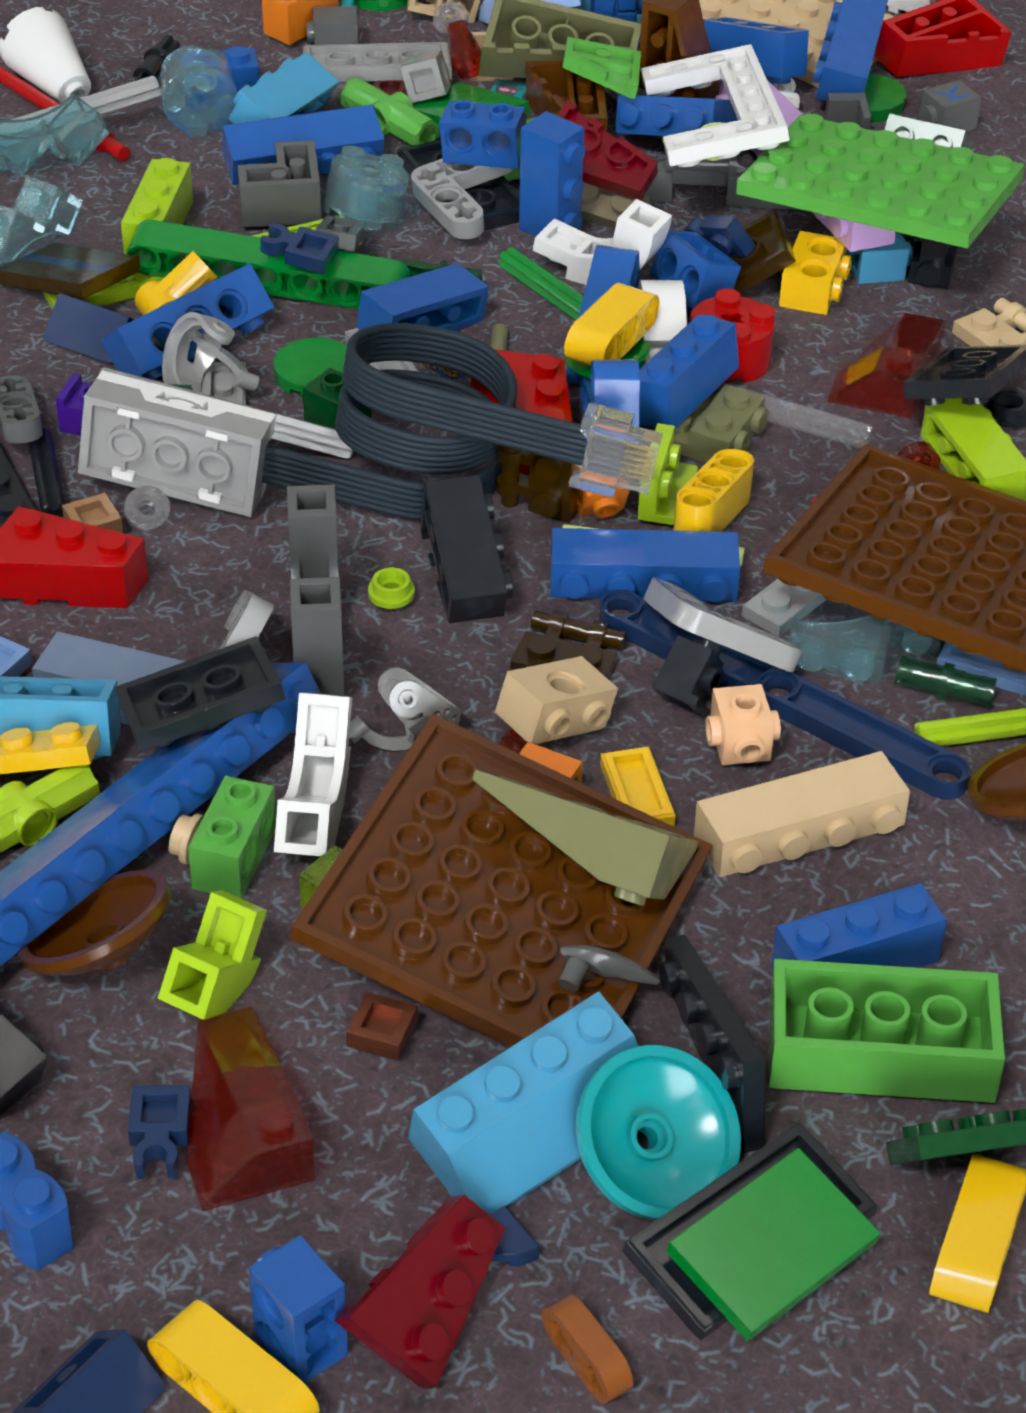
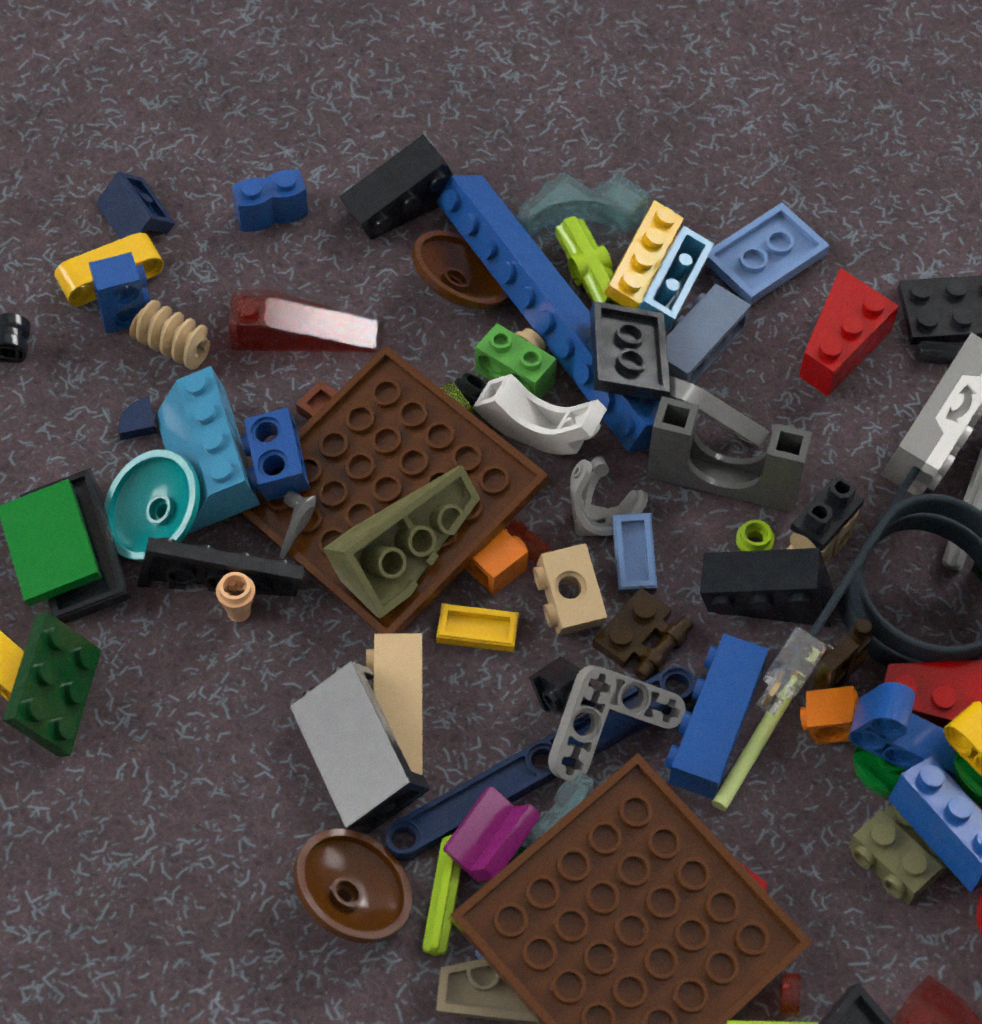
camera: 110 degrees right, 15 degrees up
(94, 511) = (900, 369): medium nougat plate -> none
(151, 496) = (904, 405): clear plate -> none
(158, 1124) = (300, 280): dark blue plate -> none
(220, 964) = (403, 326): lime brick -> none
(283, 878) = (470, 387): none -> black plate
(343, 1222) = (171, 334): none -> tan piece
(378, 510) = (827, 519): none -> black hips
(426, 1295) = (103, 359): dark red wing -> none
(462, 672) = (634, 552): none -> medium blue tile
(524, 990) = (281, 452): none -> blue brick
(587, 1348) = (37, 431): dark orange beam -> none
(667, 480) = (823, 769): lime bracket -> none
(715, 492) = (787, 815): yellow beam -> none
(742, 725) = (498, 705): light nougat brick -> none
(747, 991) = (236, 595): none -> light nougat cone
(813, 421) = (902, 927): clear axle -> none
(877, 817) = (356, 749): none -> panel
(883, 930) = (256, 693): blue brick -> none
(885, 1030) = (170, 669): bright green brick -> none
(904, 685) = (490, 835): none -> magenta panel

